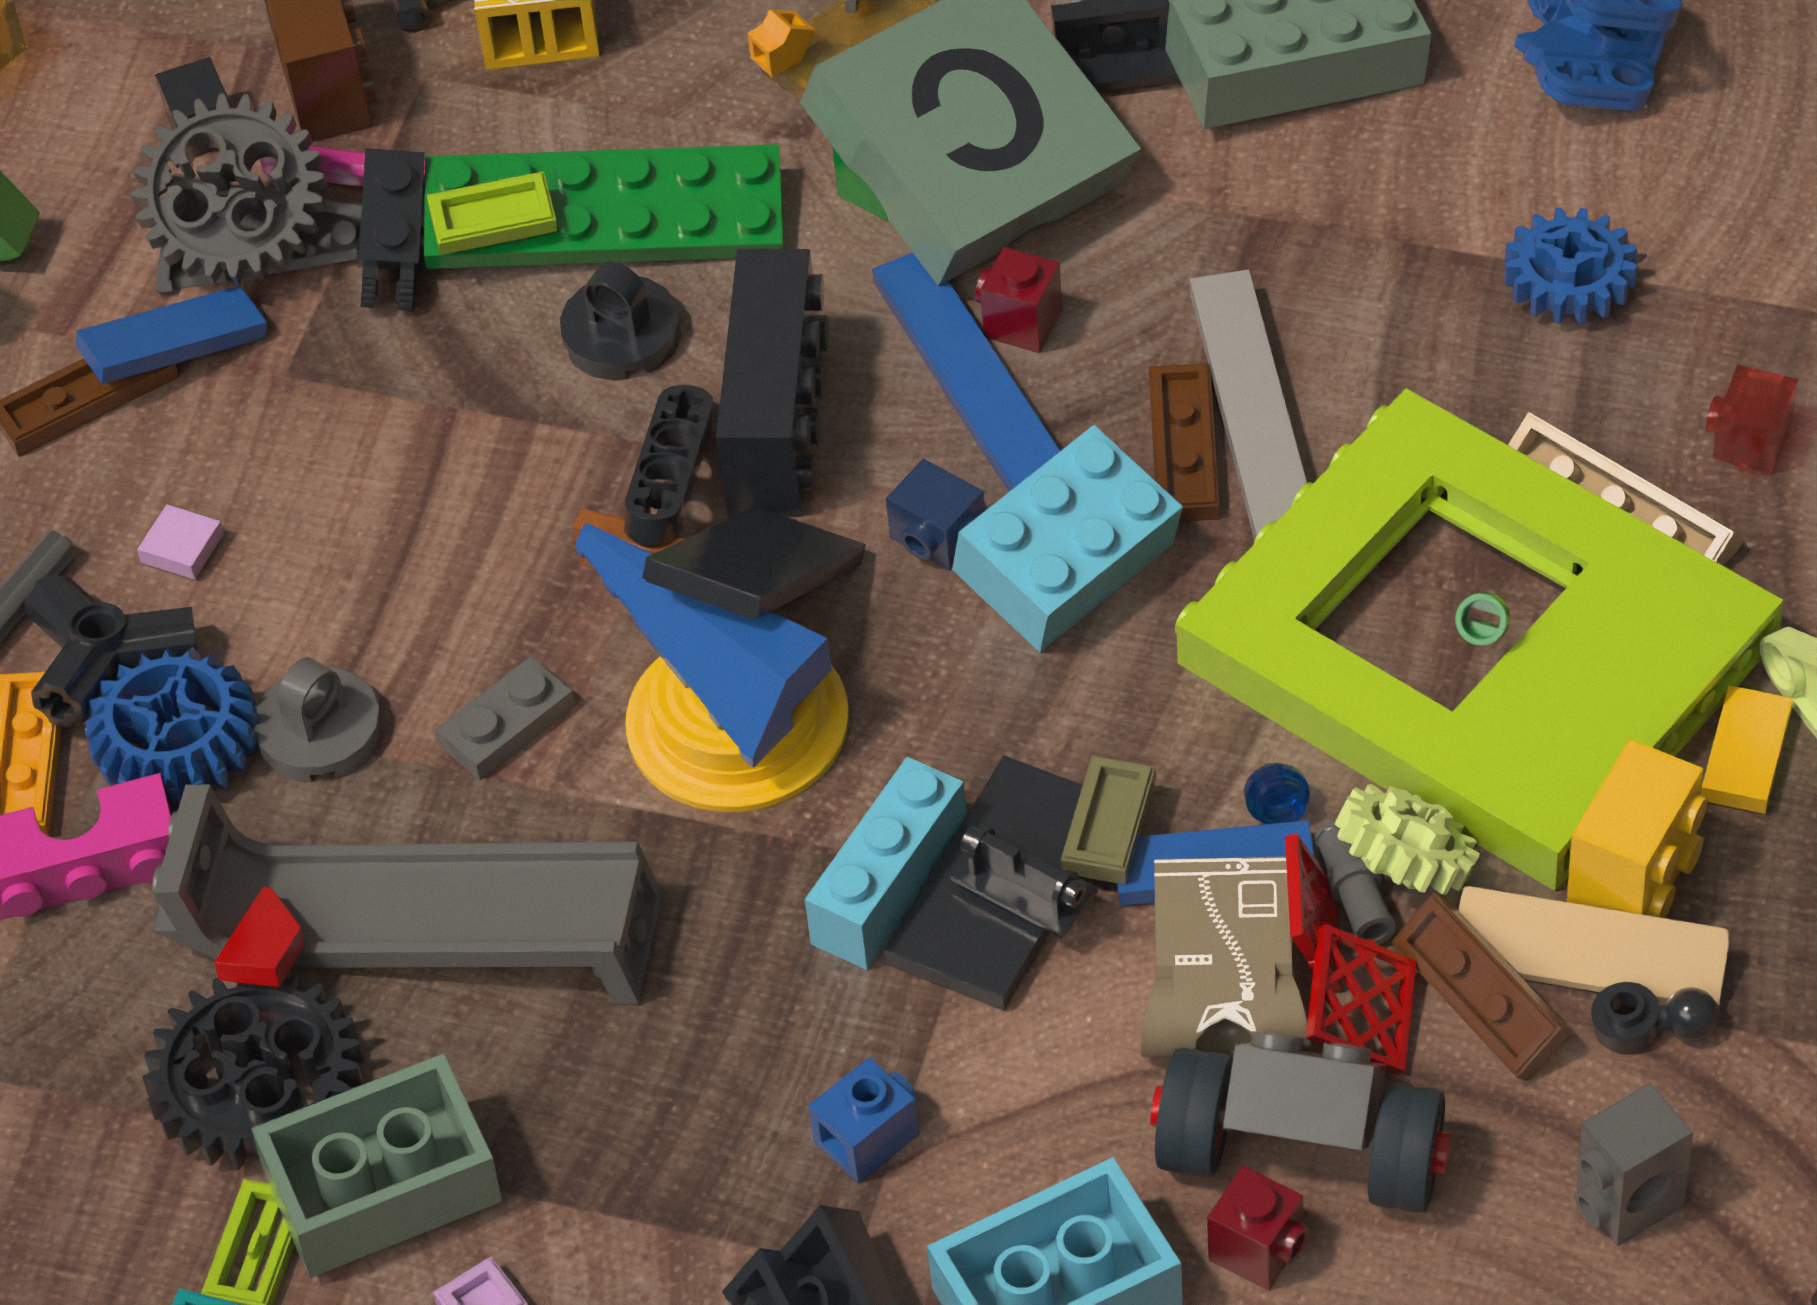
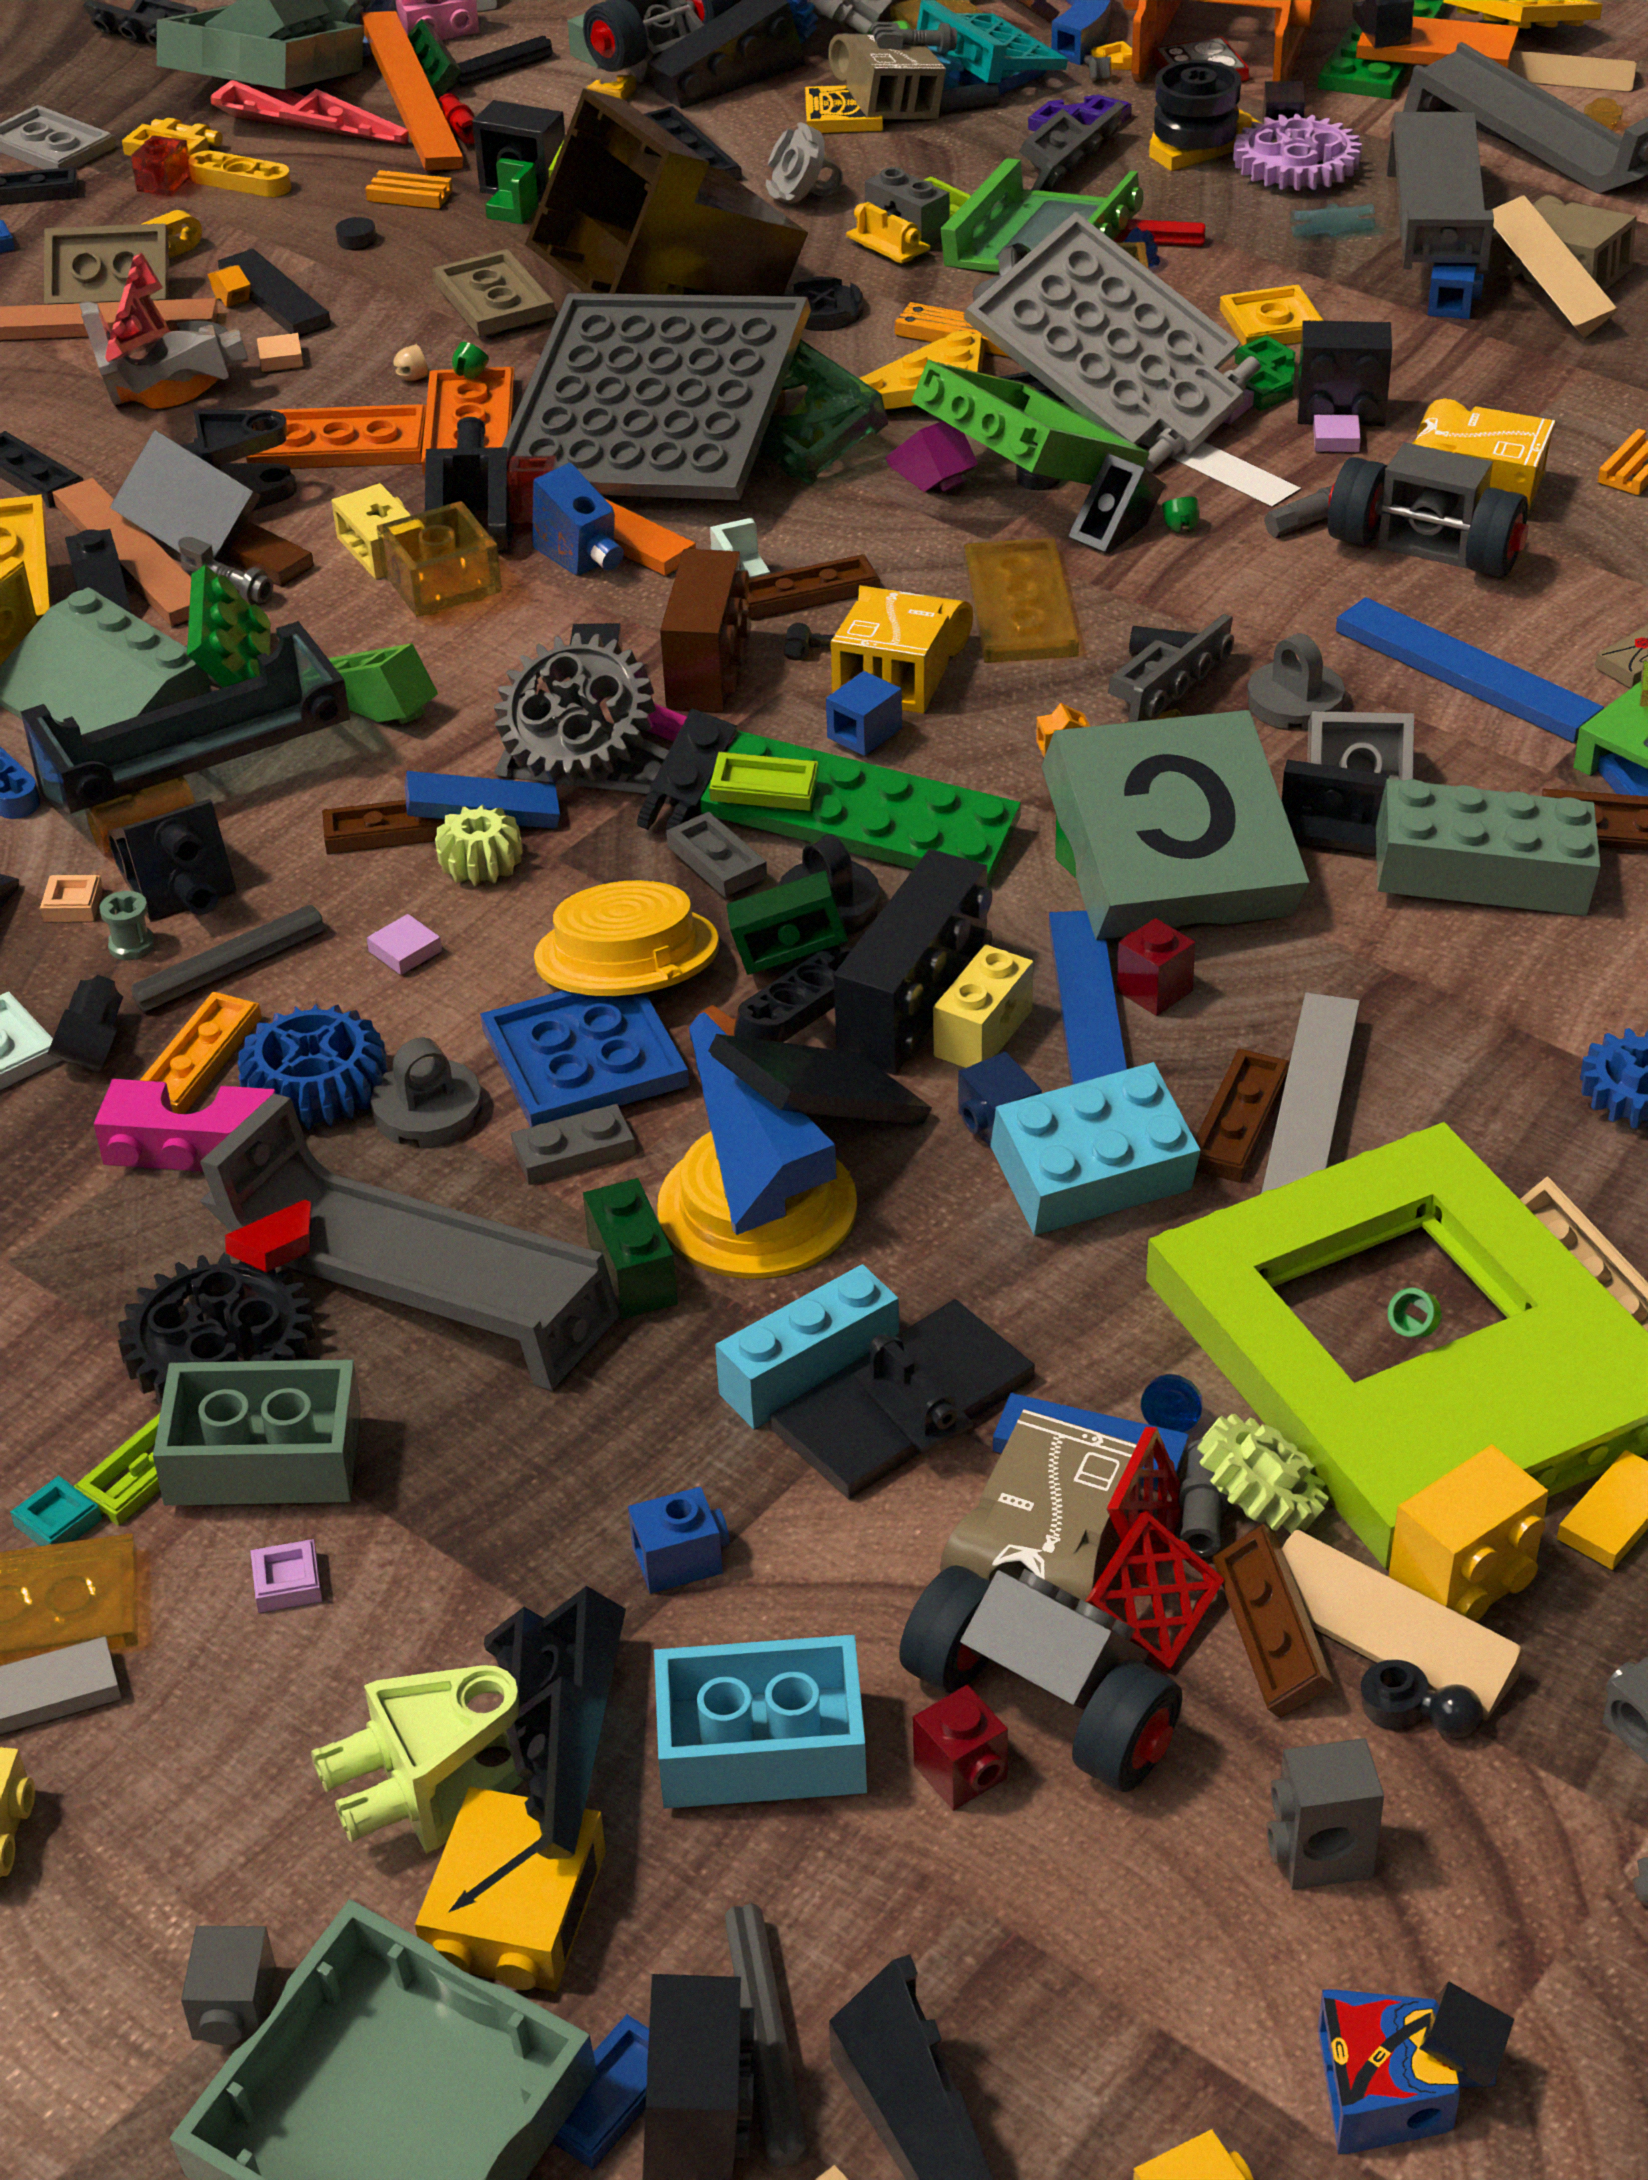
camera: 20 degrees right, 10 degrees down
(94, 643) = (291, 982): black piece -> none
(199, 392) = (478, 845): none -> yellowish green gear
(437, 461) = (625, 940): none -> yellow piece
(458, 604) = (582, 1053): none -> blue plate
(472, 315) = (717, 854): none -> dark grey plate
(546, 84) = (864, 713): none -> blue brick
(606, 379) = (786, 922): none -> dark green brick
(630, 802) = (633, 1247): none -> dark green brick
(865, 411) = (983, 1007): none -> light yellow brick
(1109, 819) = (1013, 1374): olive tile -> none

